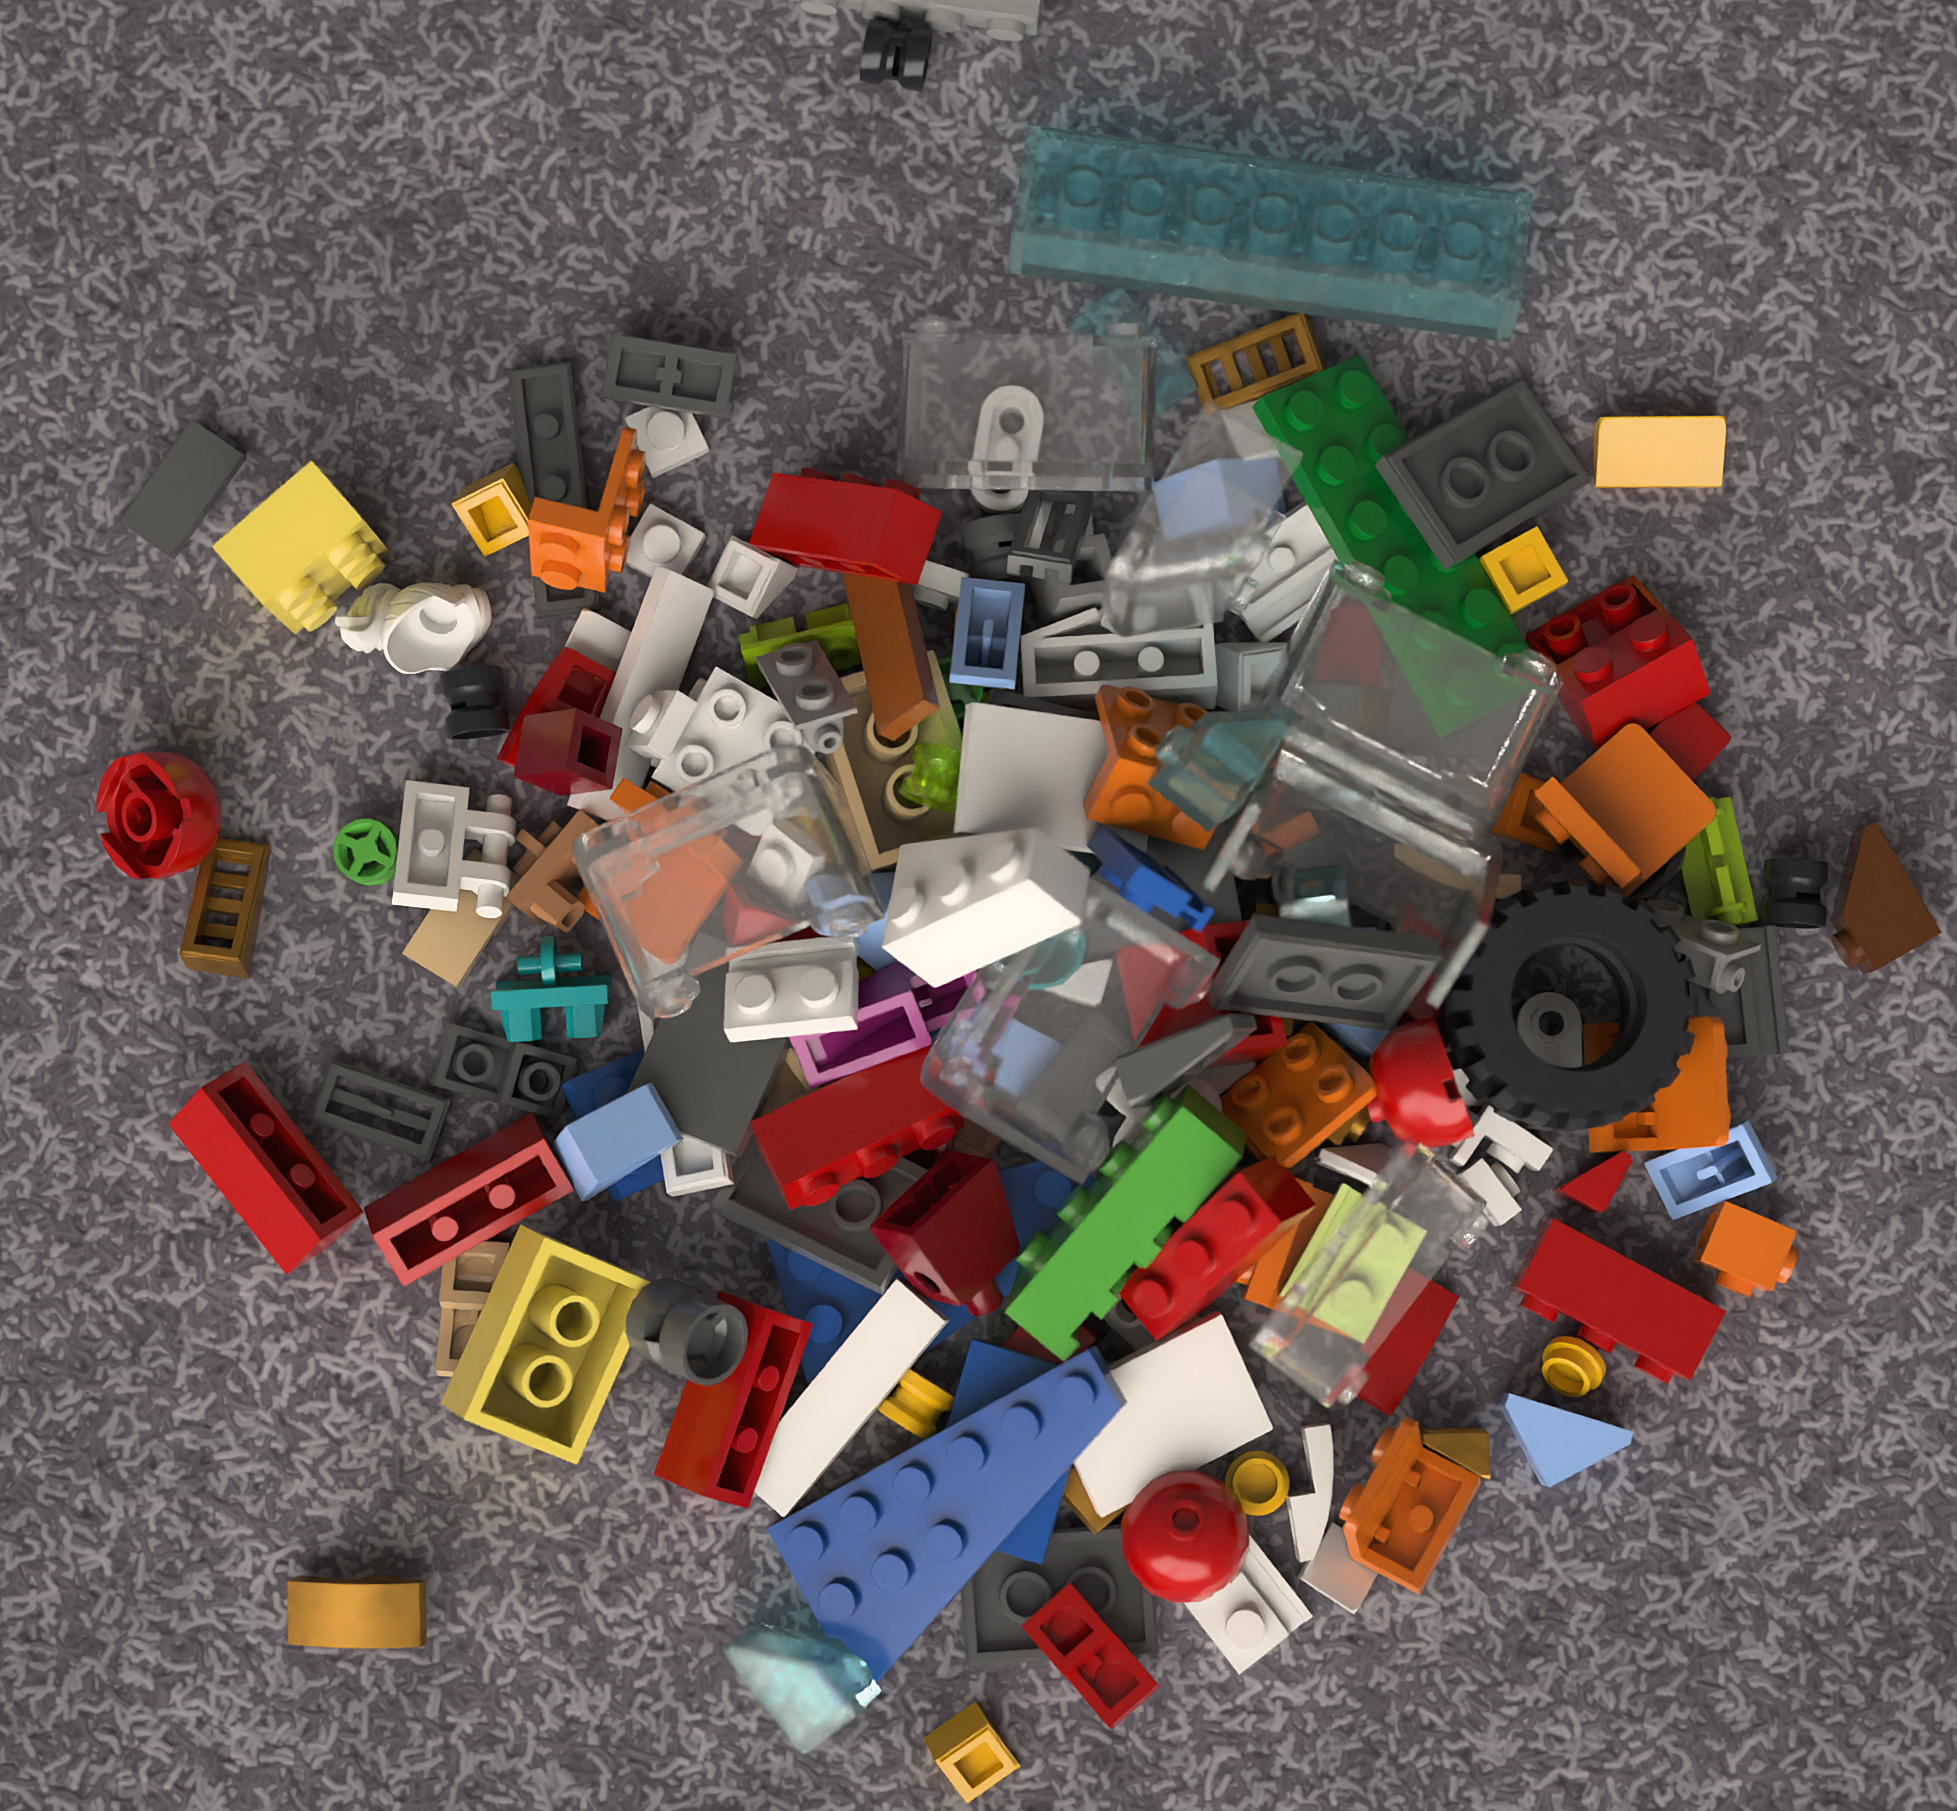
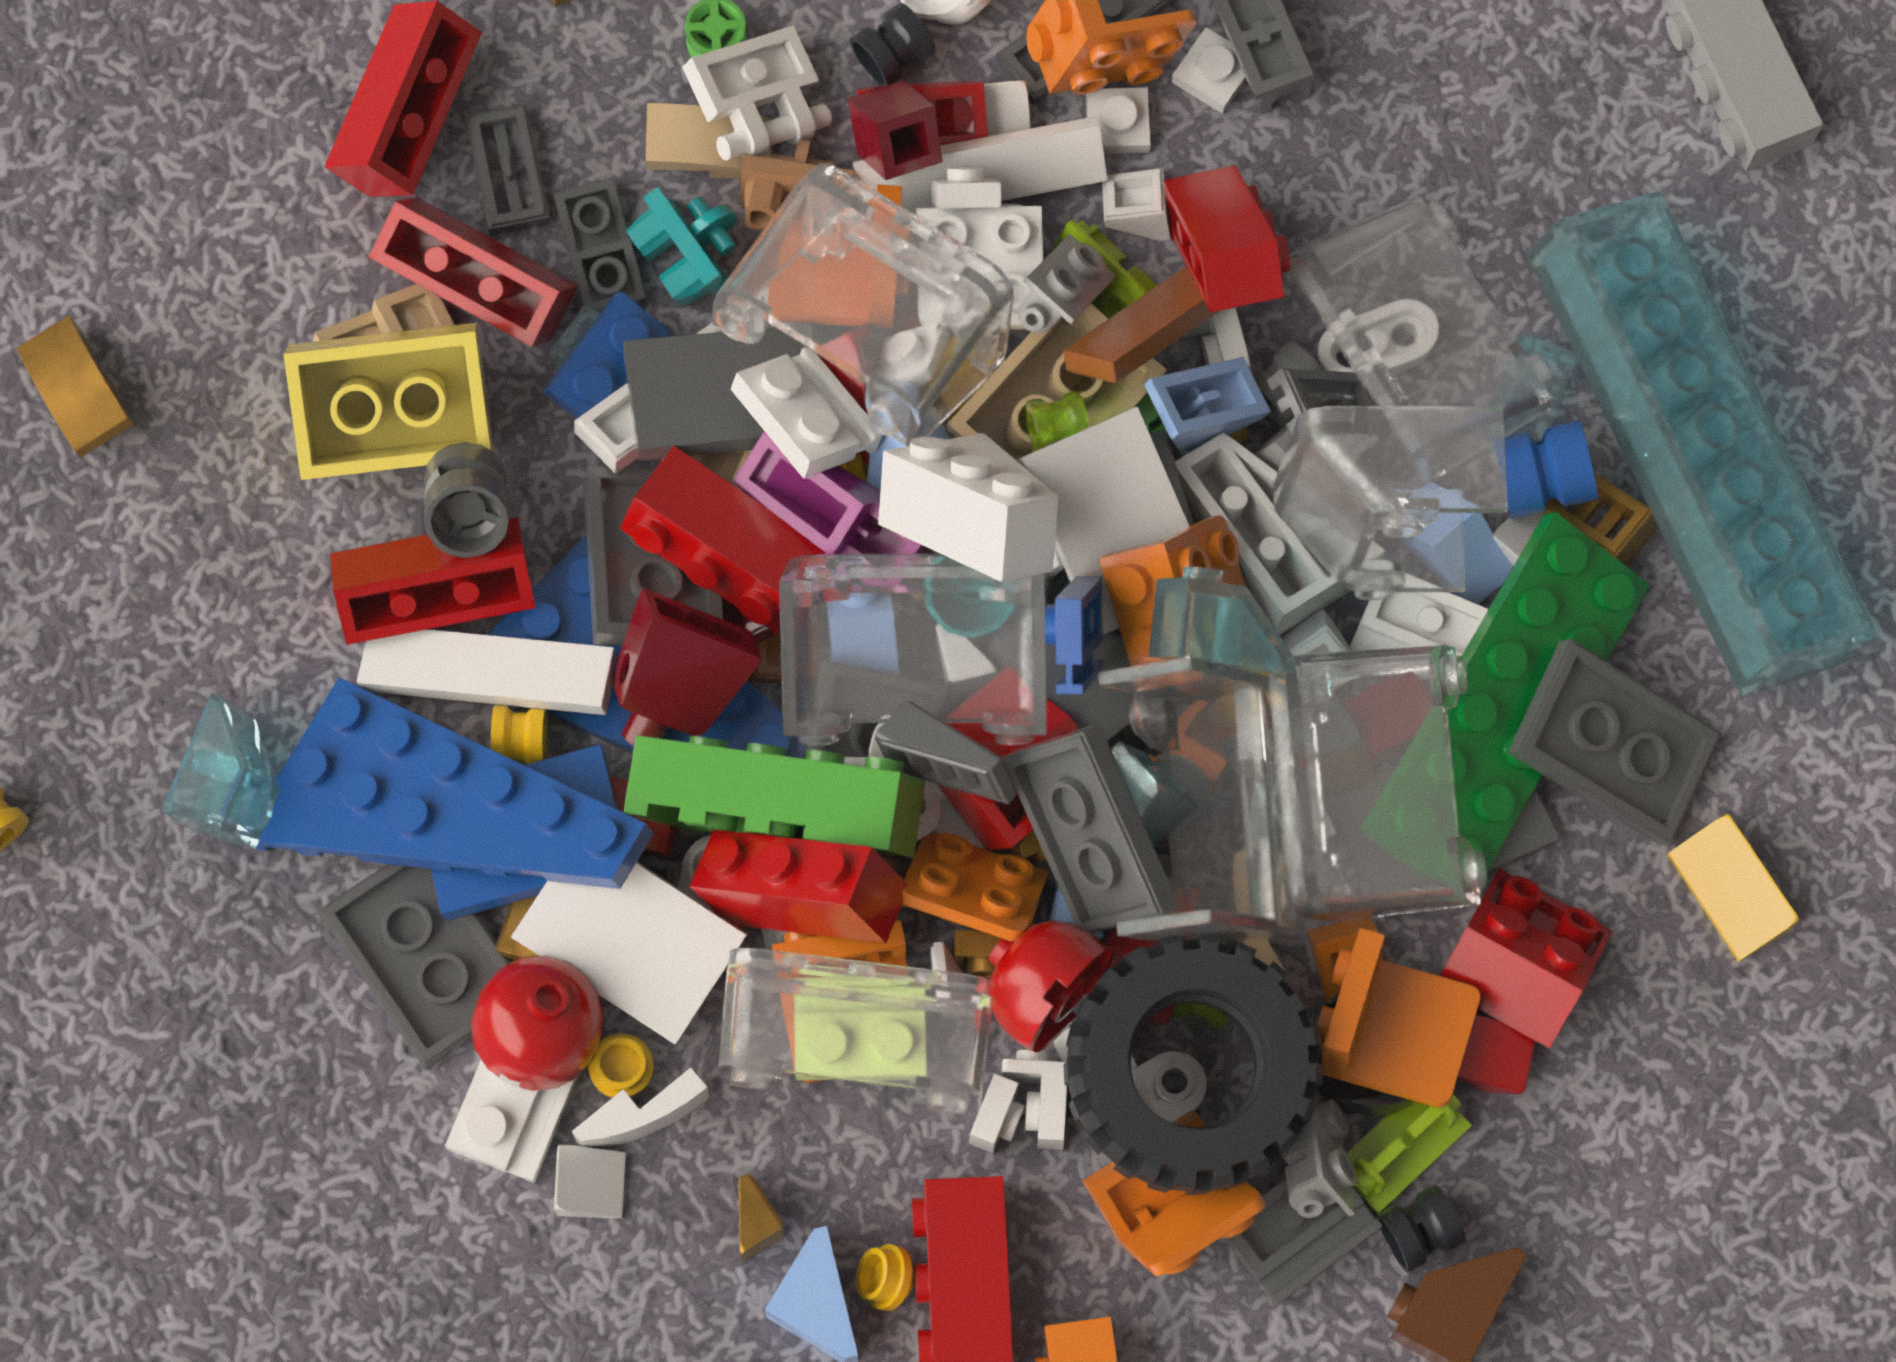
camera: 55 degrees right, 10 degrees down
(615, 1140) = (592, 349): light blue slope -> none
(882, 50) = (1650, 63): black wheel -> none
(971, 1752) = (245, 961): yellow slope -> none
(1090, 1656) = (386, 1005): red slope -> none
(1215, 373) = (1548, 469): none -> blue wheel
(1406, 1348) = (817, 1113): red slope -> none
(1406, 1508) = (674, 1192): orange bracket -> none
(1523, 570) = (1551, 824): yellow plate -> none
(1597, 1184) = (1060, 1203): red slope -> none
(1709, 1175) = (1130, 1294): light blue slope -> none

